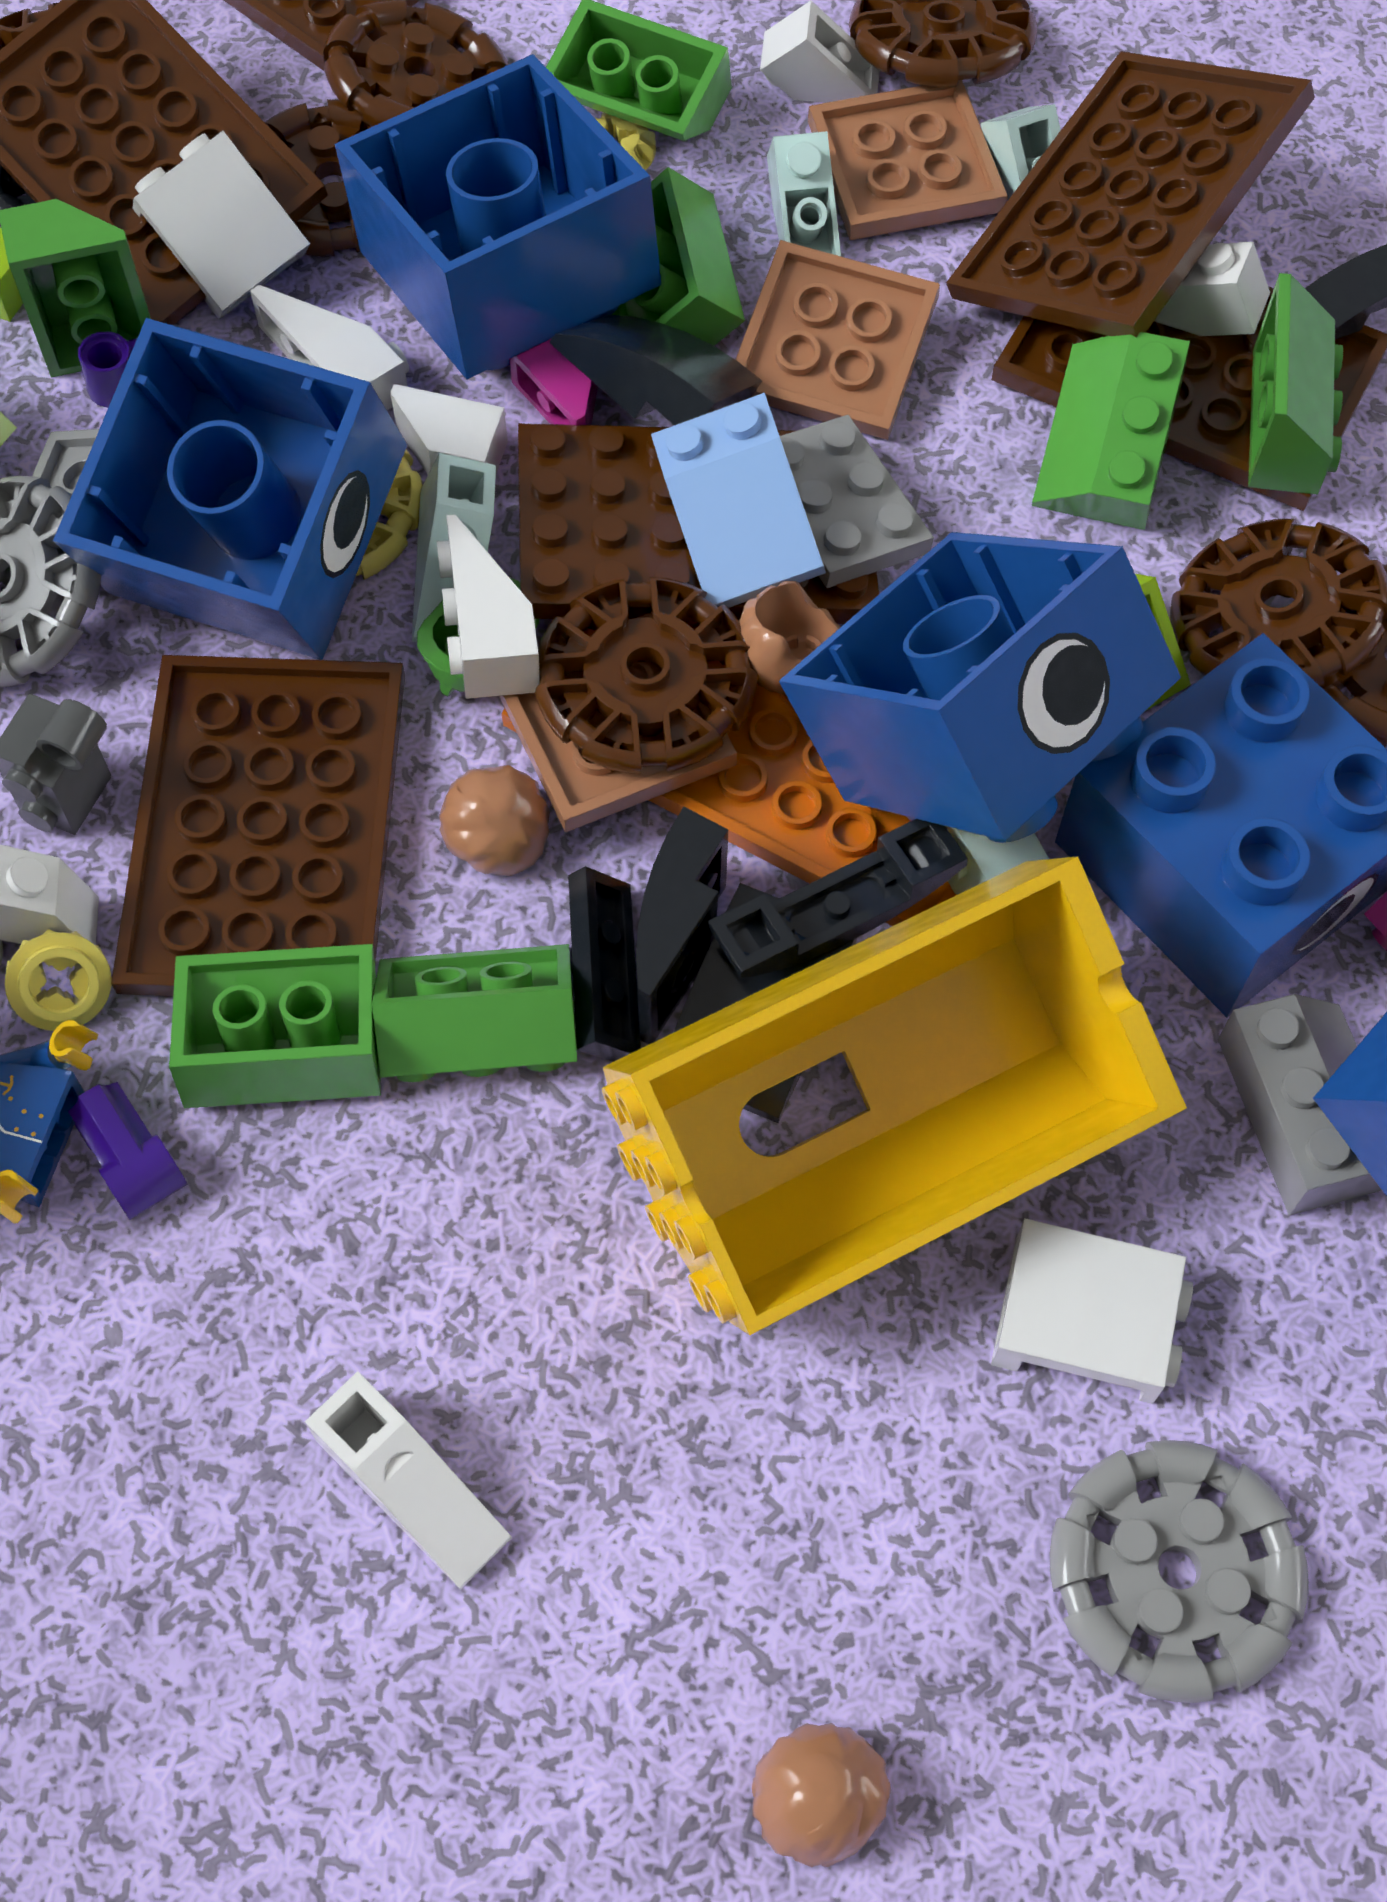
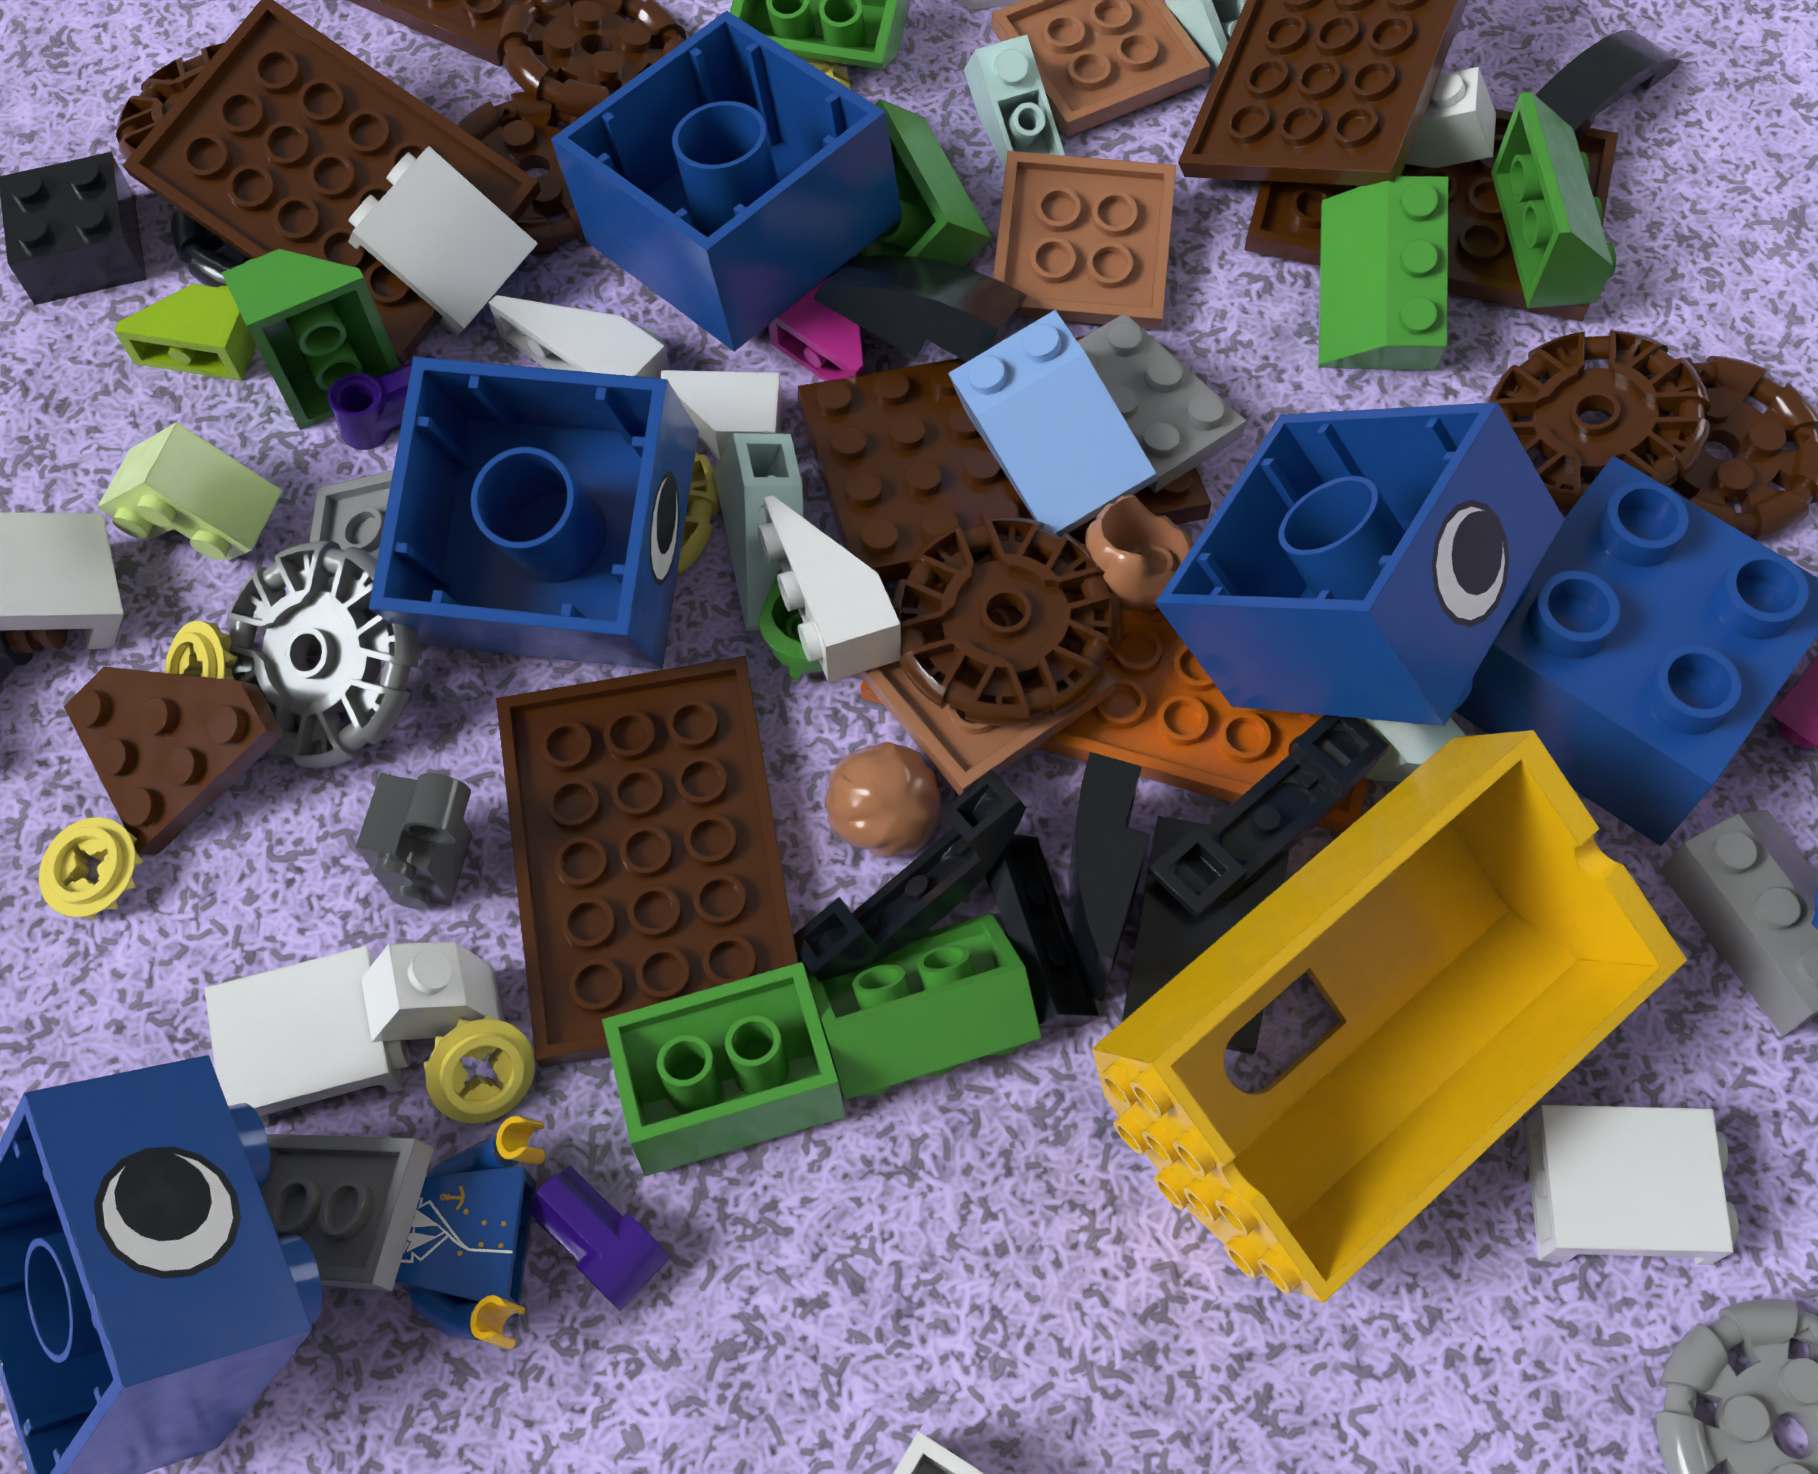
camera: 10 degrees left, 0 degrees up
(426, 939) = (922, 893): none -> black slope

